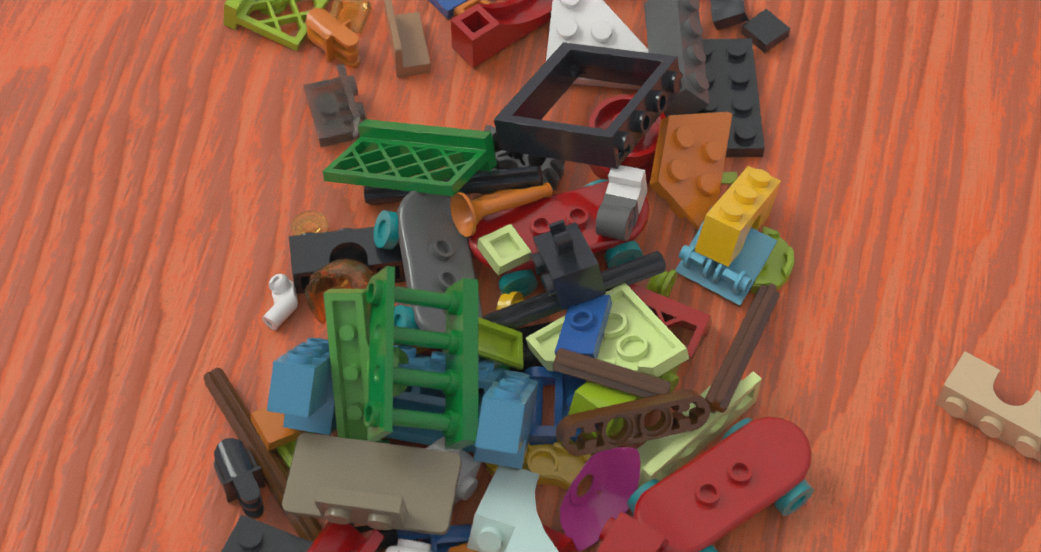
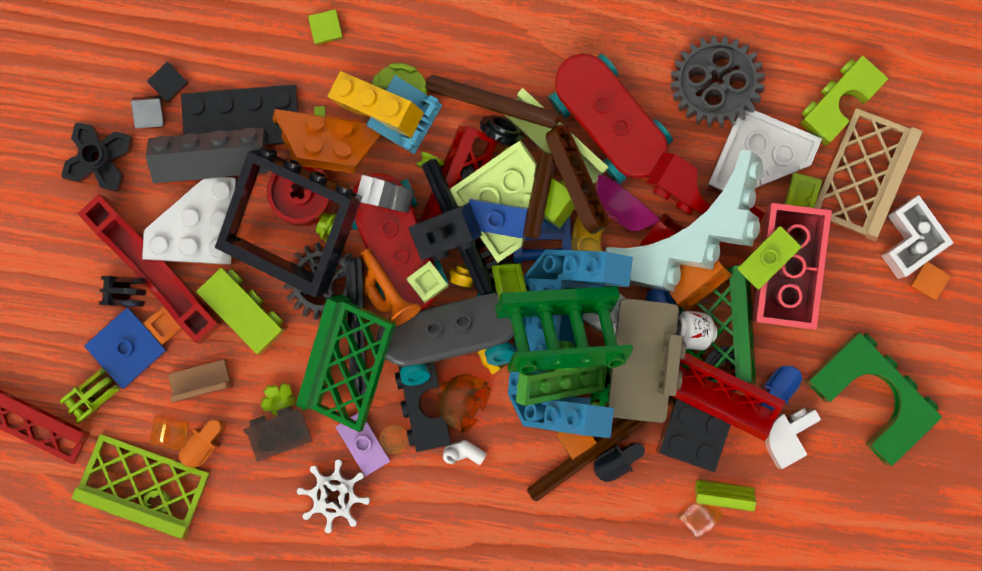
camera: 90 degrees left, 30 degrees up
(249, 158) = (321, 505): none -> white gear
(307, 195) = (364, 447): none -> lavender plate
(378, 107) = (277, 398): none -> lime plant
(485, 80) = (242, 310): none -> lime brick
(583, 174) = (324, 225): none -> lime plate
(703, 368) = (501, 130): none -> black gear
(838, 185) = (325, 27): none -> lime tile

